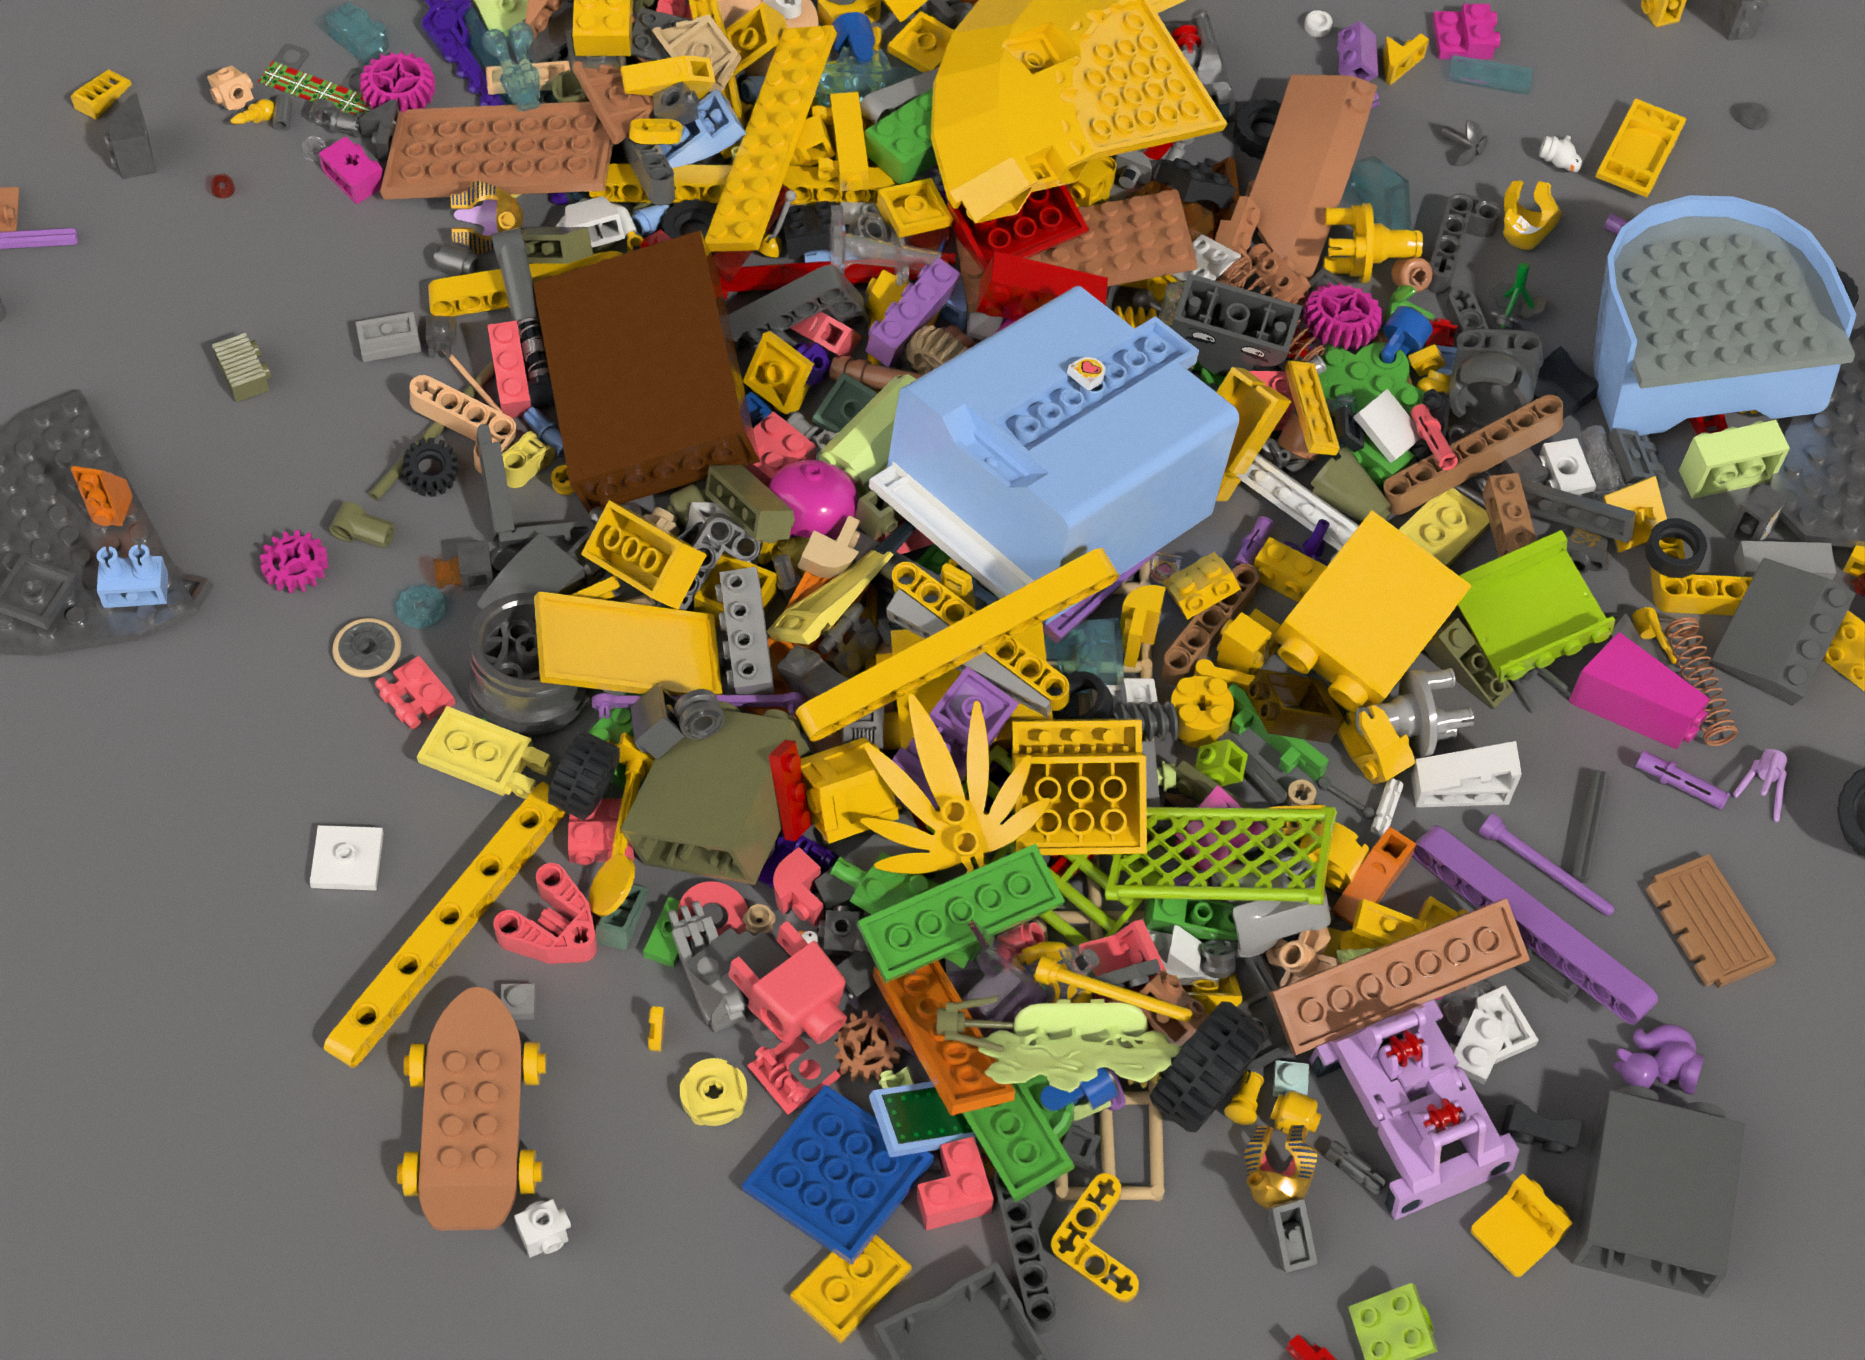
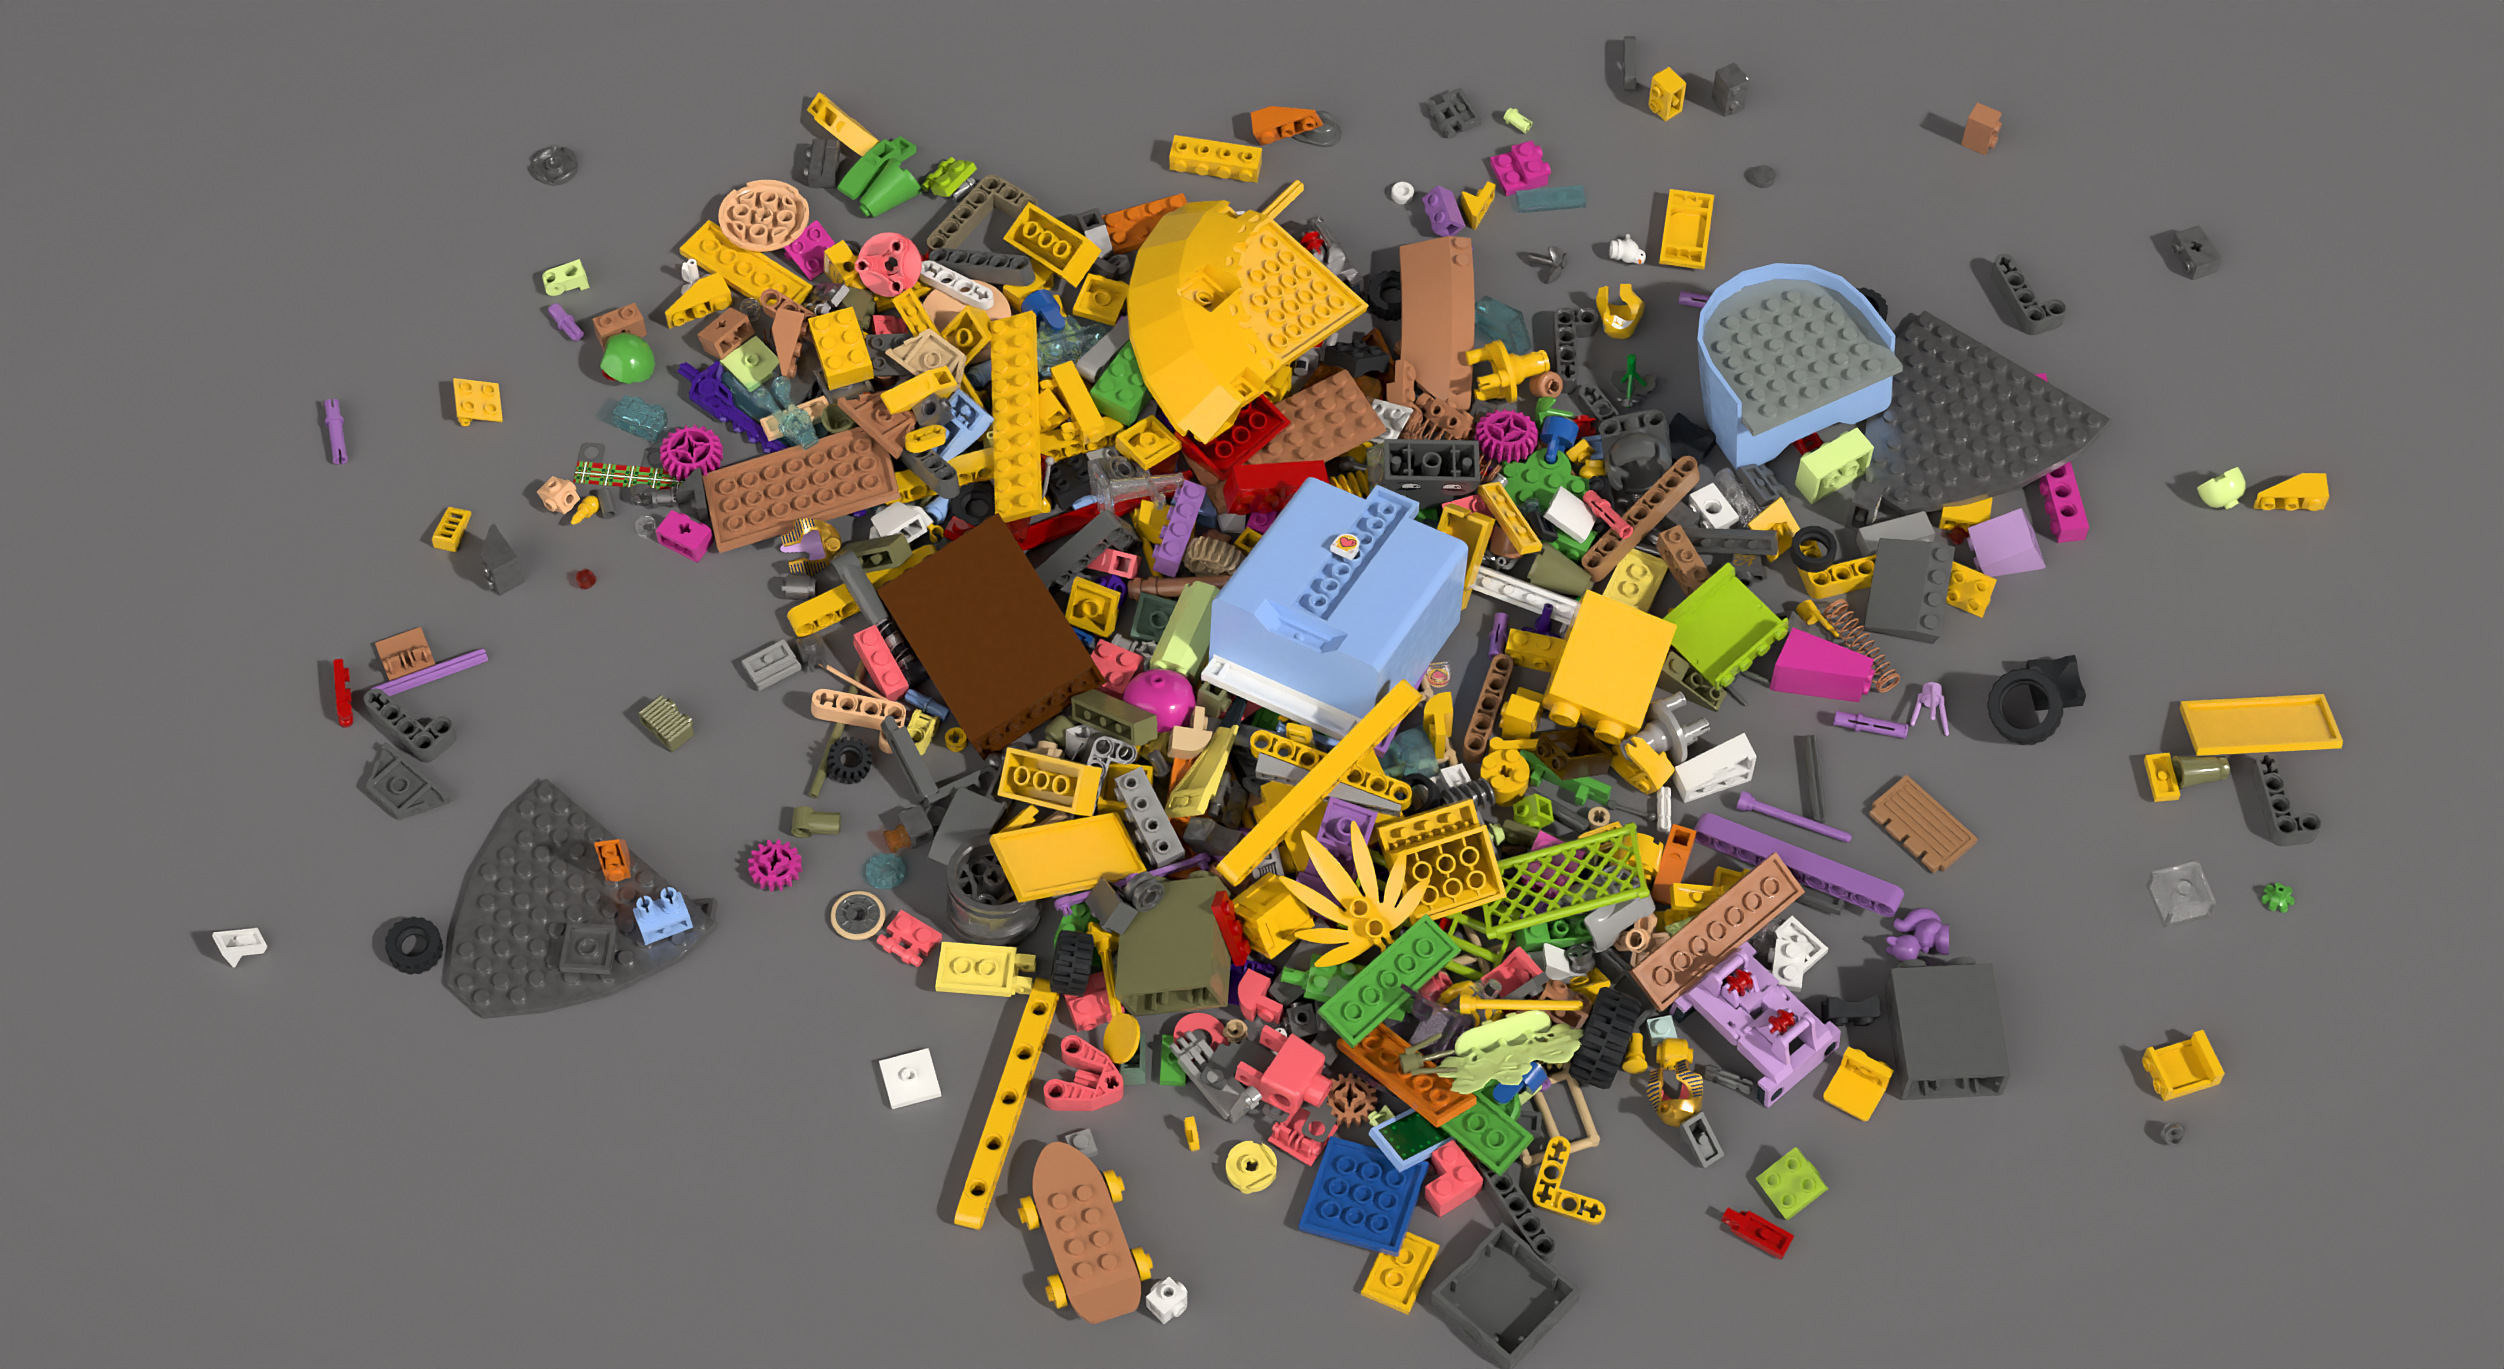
camera: 15 degrees left, 0 degrees up
(1201, 585) = (1472, 680): yellow plate -> none

